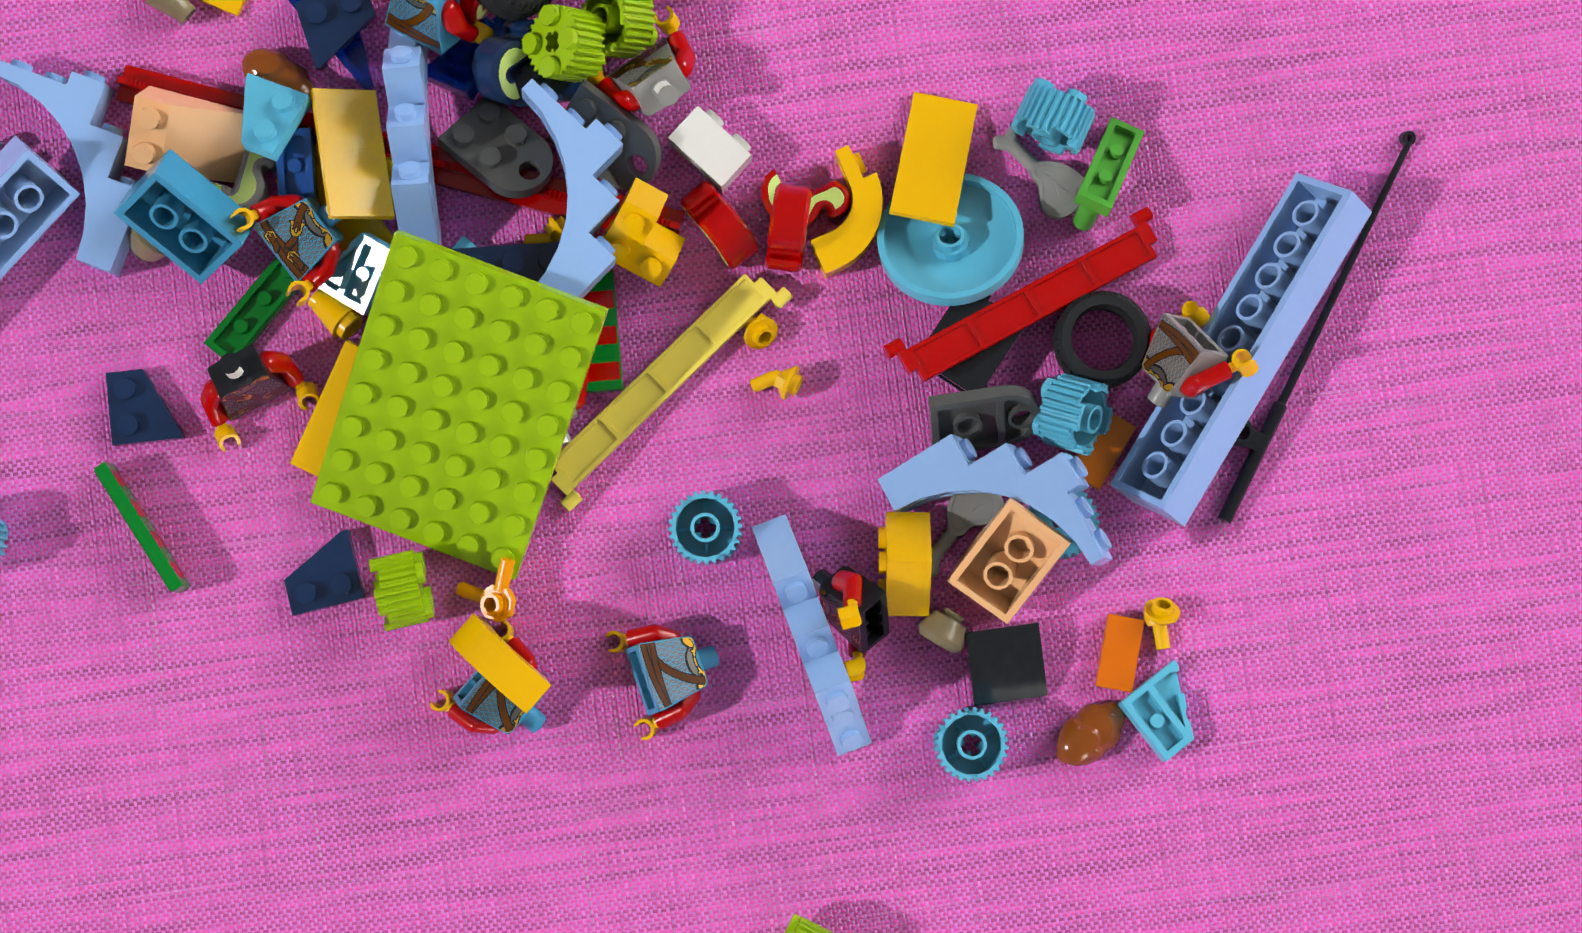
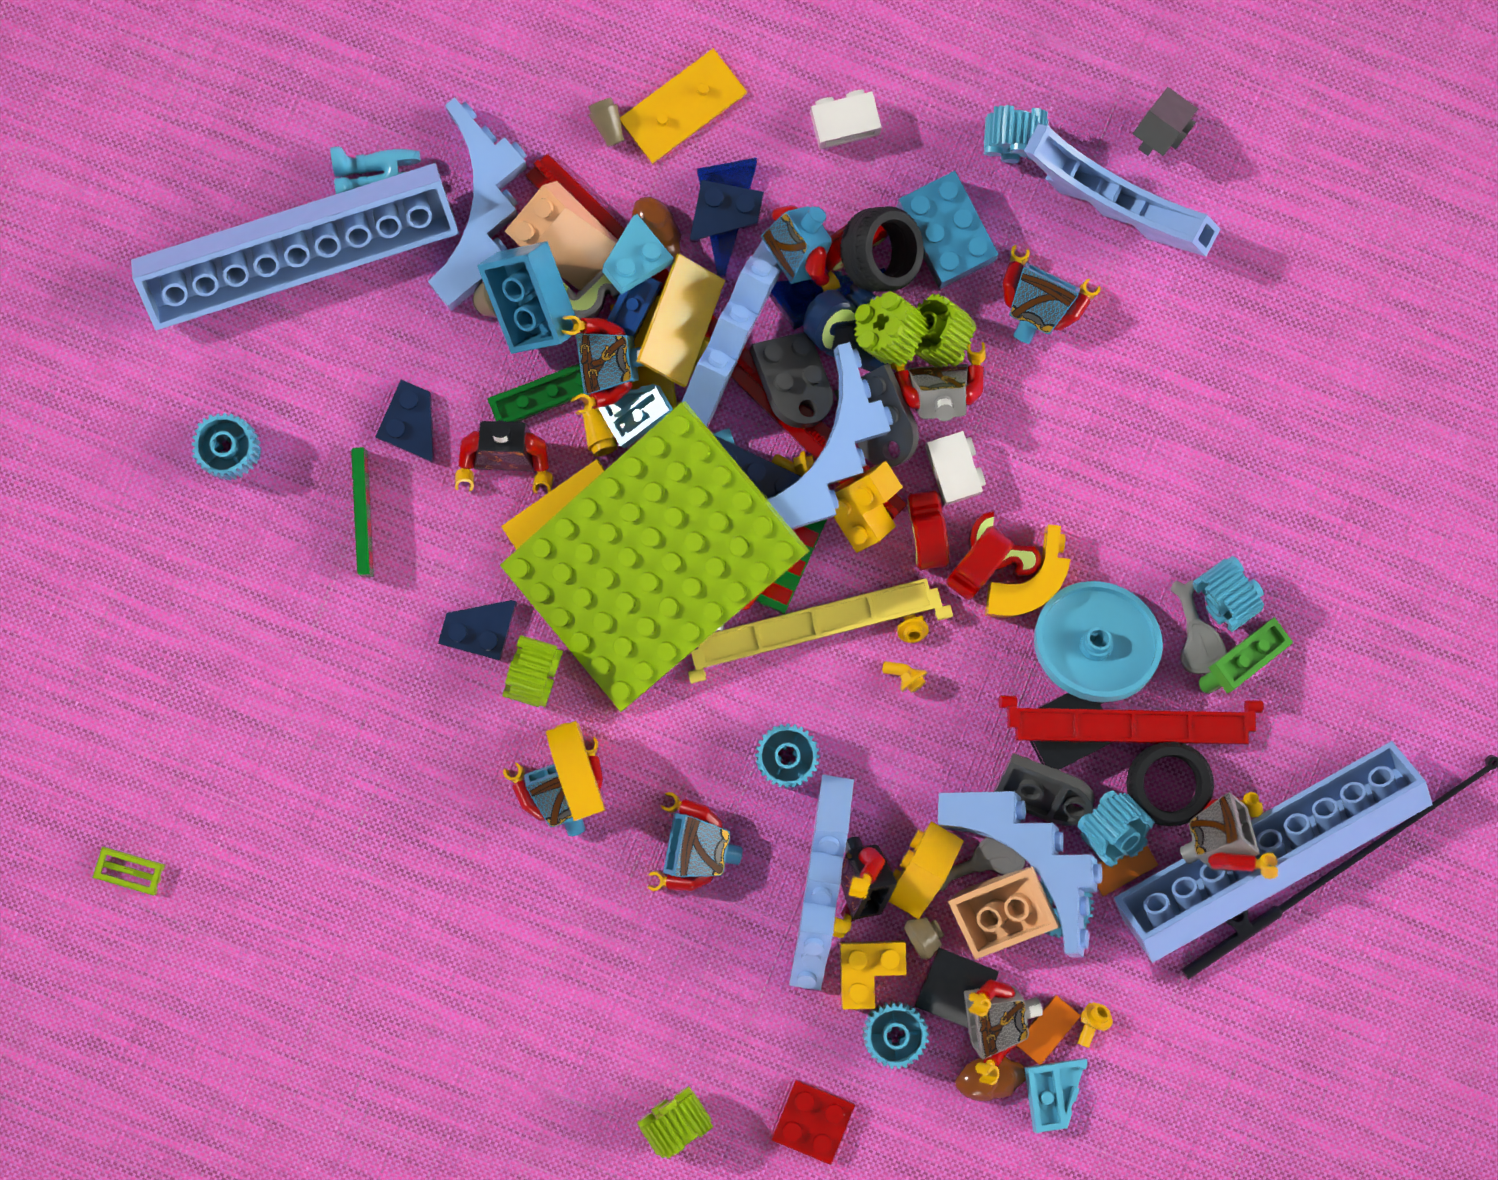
camera: 25 degrees right, 0 degrees up
(497, 600) = (598, 720): light orange piece -> none
(897, 693) = (861, 963): none -> yellow brick
(933, 159) = (1119, 573): yellow piece -> none
(938, 878) = (813, 1122): none -> red plate
(1065, 675) = (997, 1024): none -> torso

